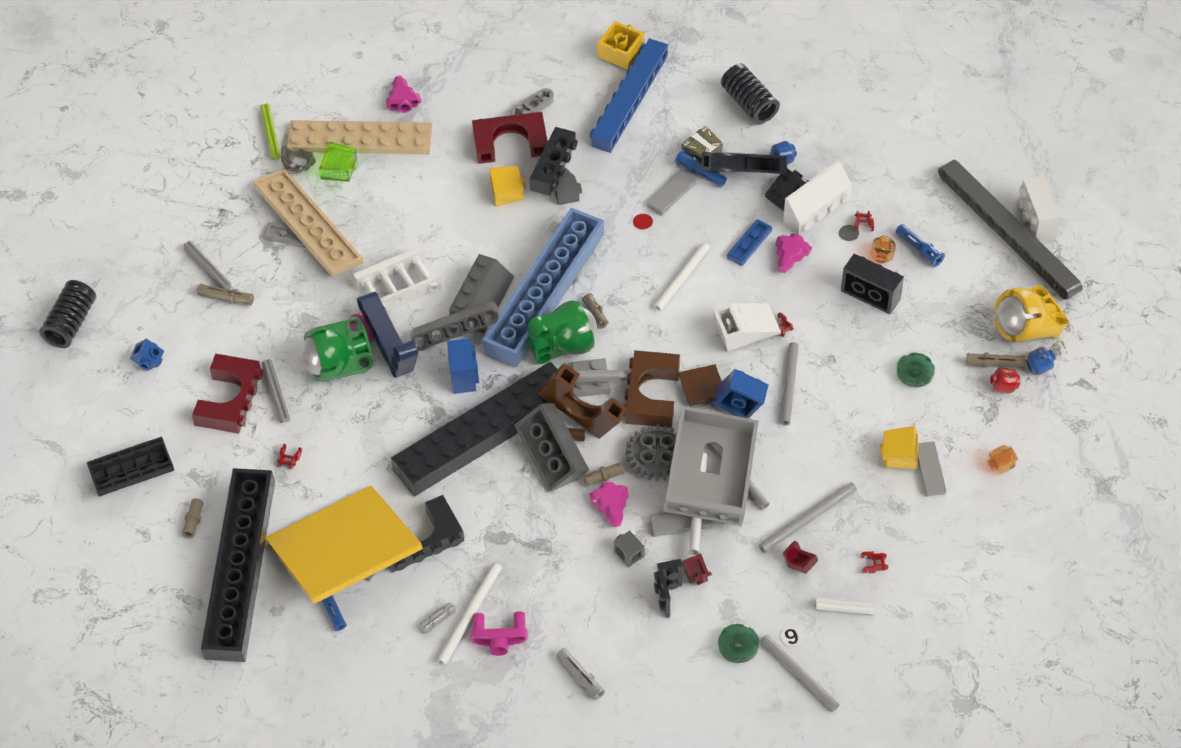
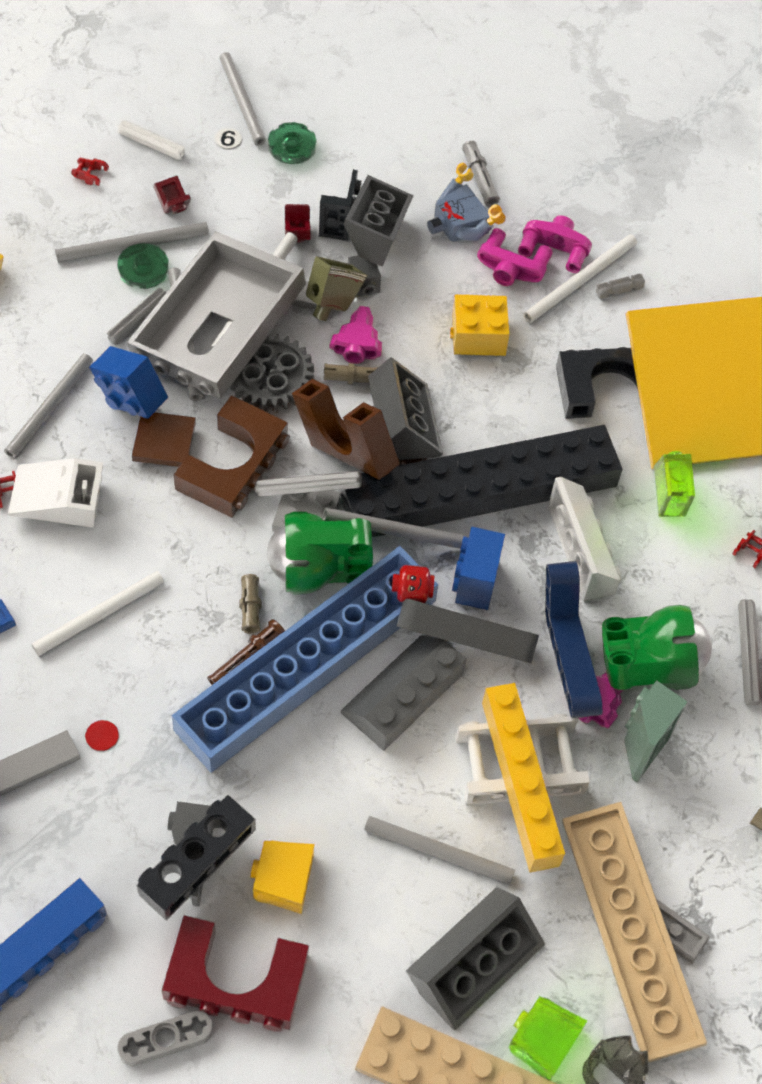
camera: 165 degrees left, 5 degrees up
(323, 300) = (651, 726): none -> sand green slope
(353, 466) = (674, 484): none -> clear neon green torso
(389, 183) = (476, 957): none -> dark grey slope
(392, 253) = (523, 778): none -> yellow brick
(400, 408) = (583, 539): none -> white slope
(426, 227) = (439, 850): none -> light grey piece
(495, 322) = (413, 583): none -> red head
(517, 371) = (399, 529): none -> light grey piece
(525, 598) = (512, 266): none -> dark pink connector
(527, 536) = (480, 325): none -> yellow brick
(577, 287) = (255, 642): none -> reddish brown pin
(577, 624) = (461, 212): none -> sand blue torso
(635, 572) = (376, 219): none -> dark grey slope
(641, 517) = (333, 286): none -> olive torso
(770, 464) = (135, 317): none -> light grey axle
(789, 510) = (143, 265): none -> clear green plate

